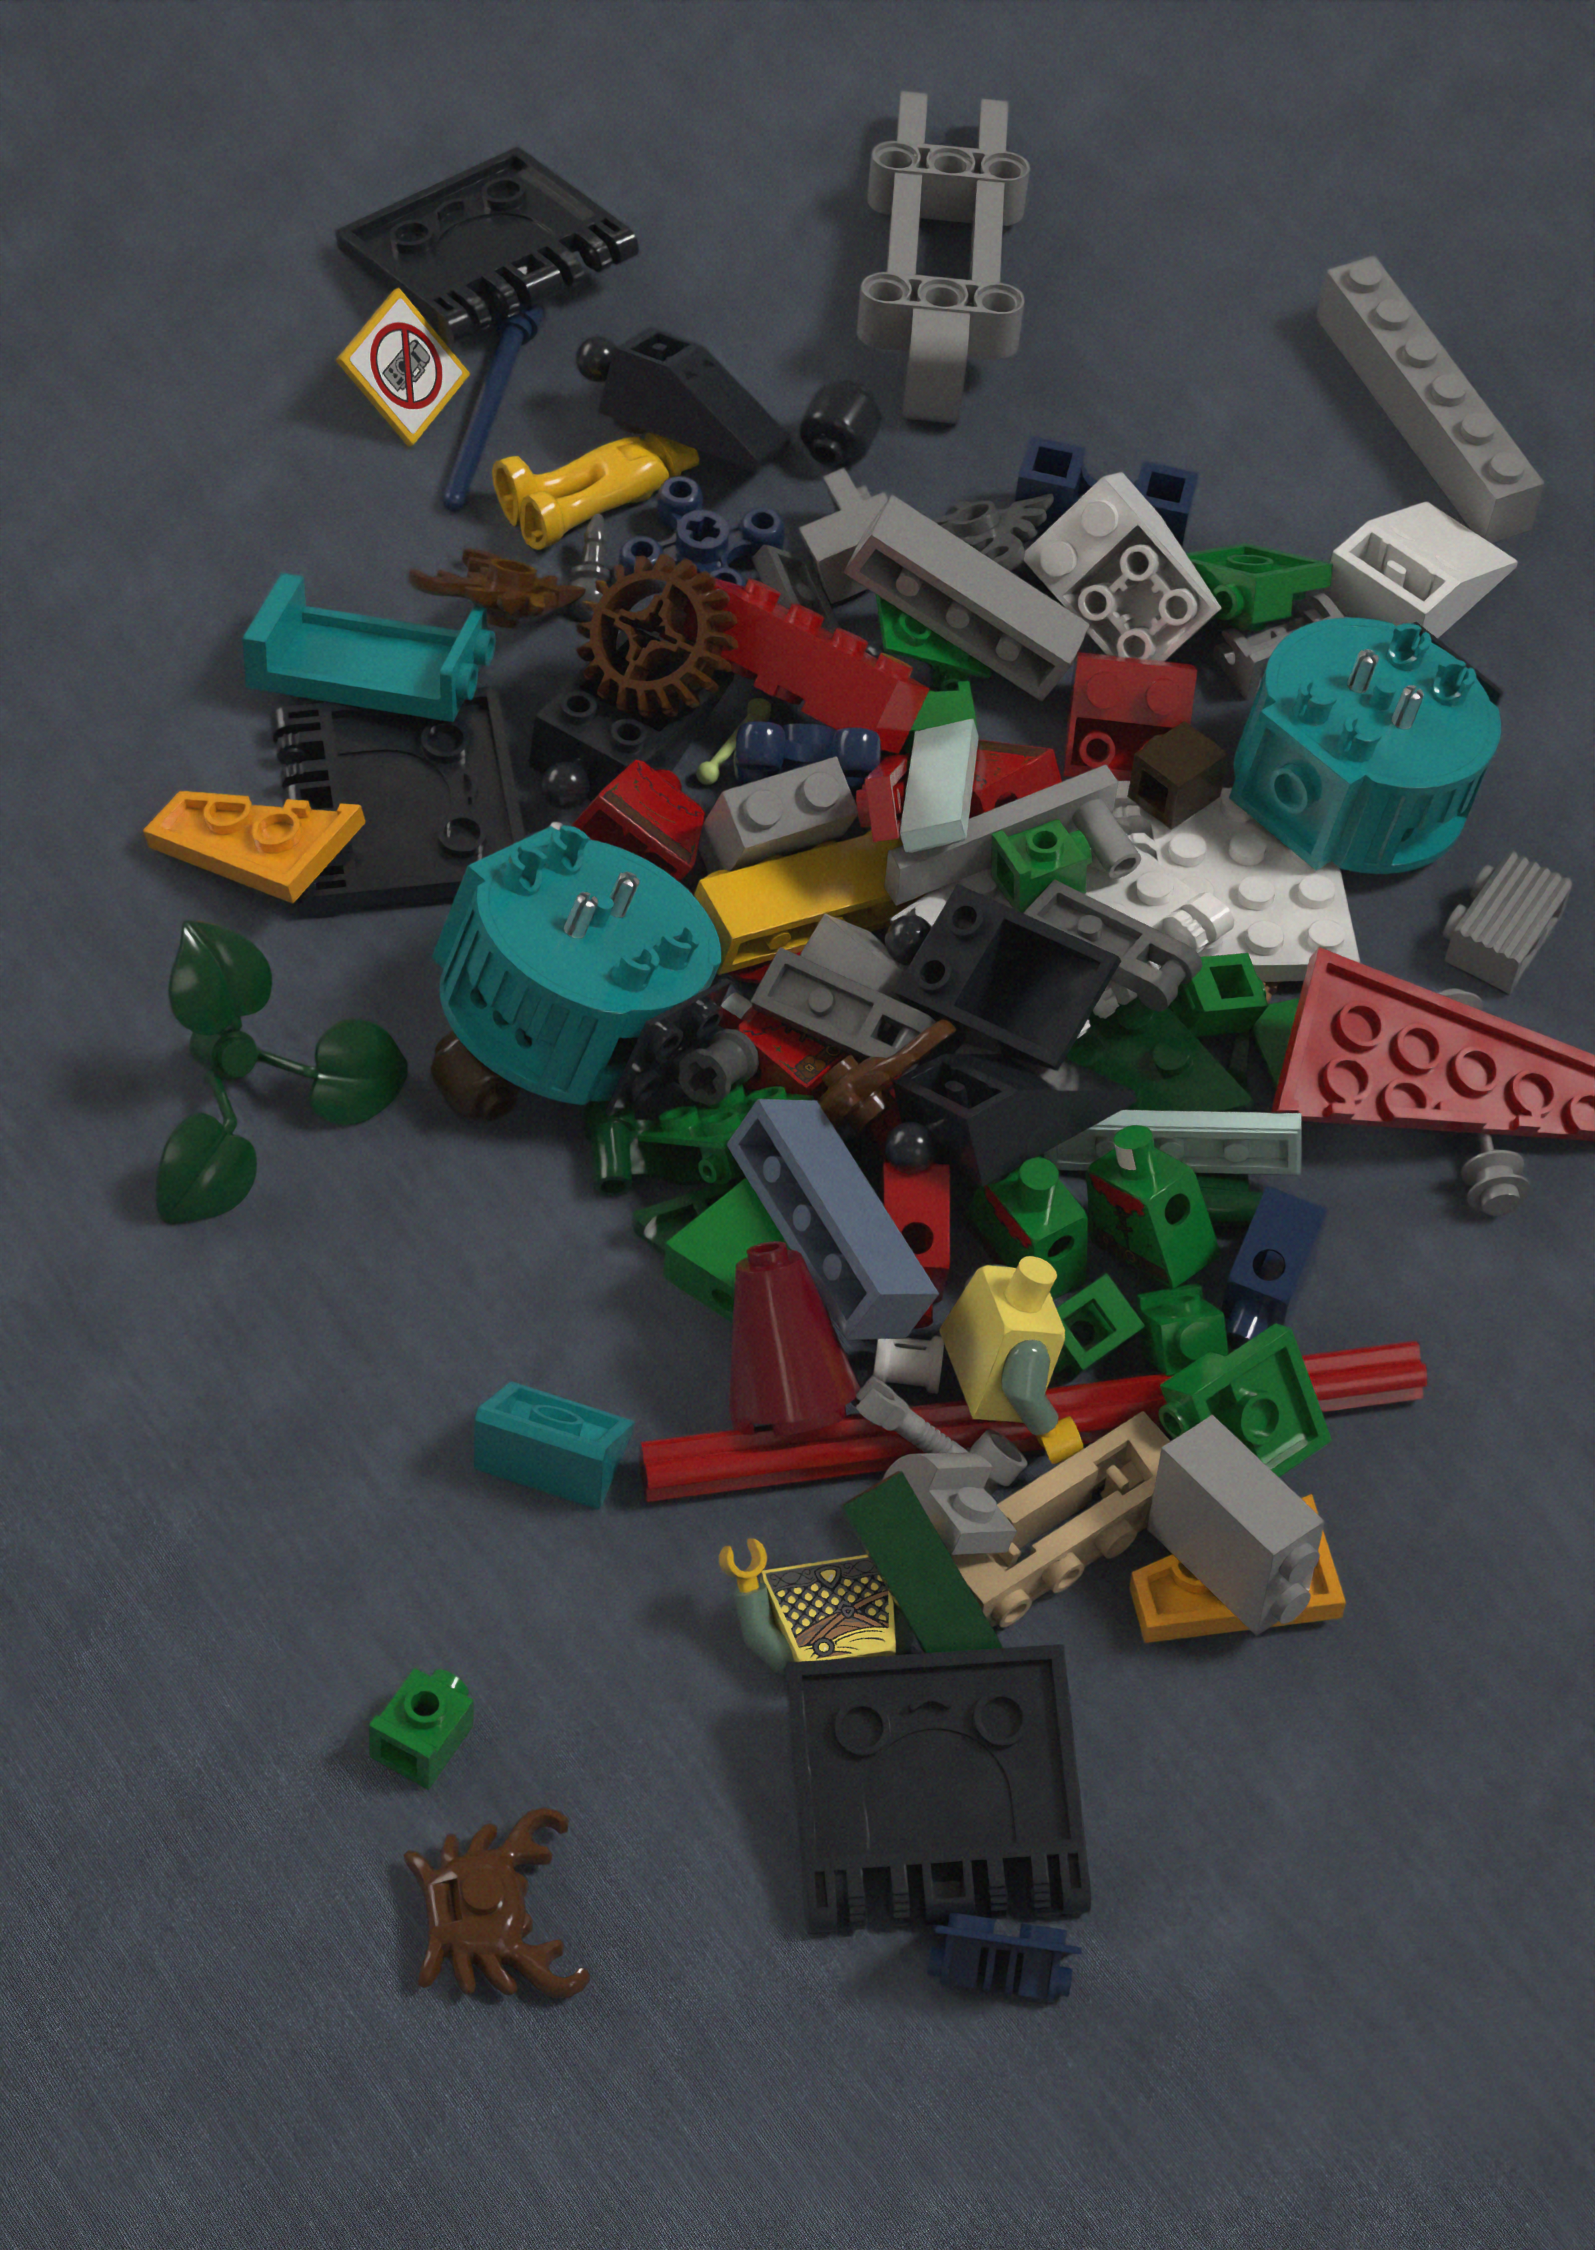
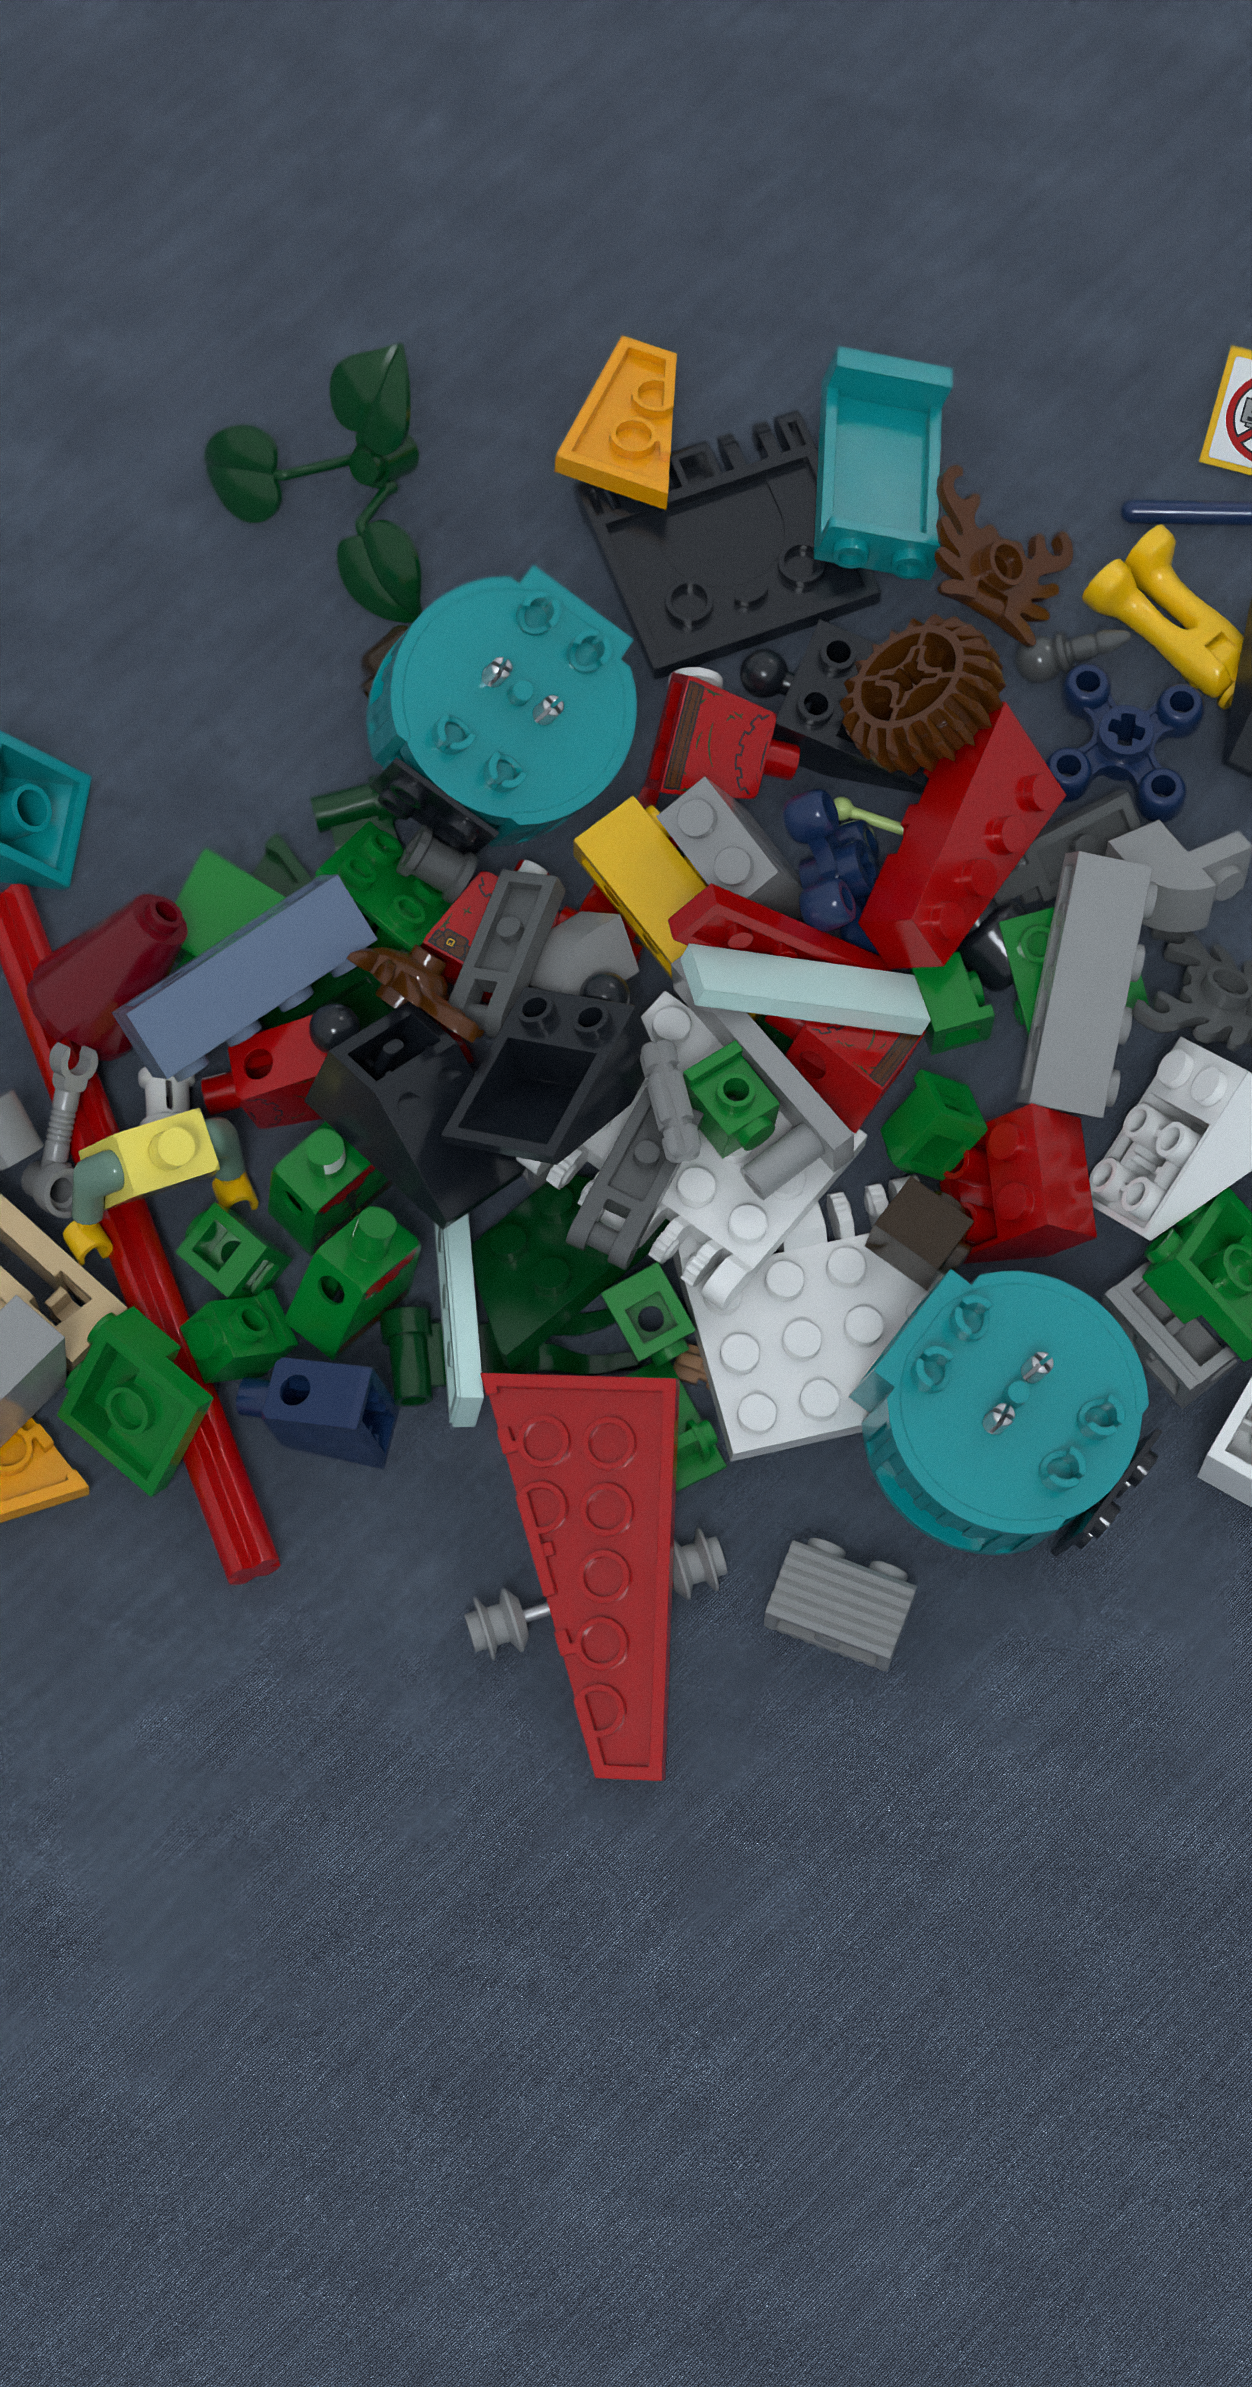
camera: 85 degrees right, 15 degrees up
(1049, 890) = (670, 1101): none -> light grey axle
(1071, 739) = (933, 1126): none -> green brick

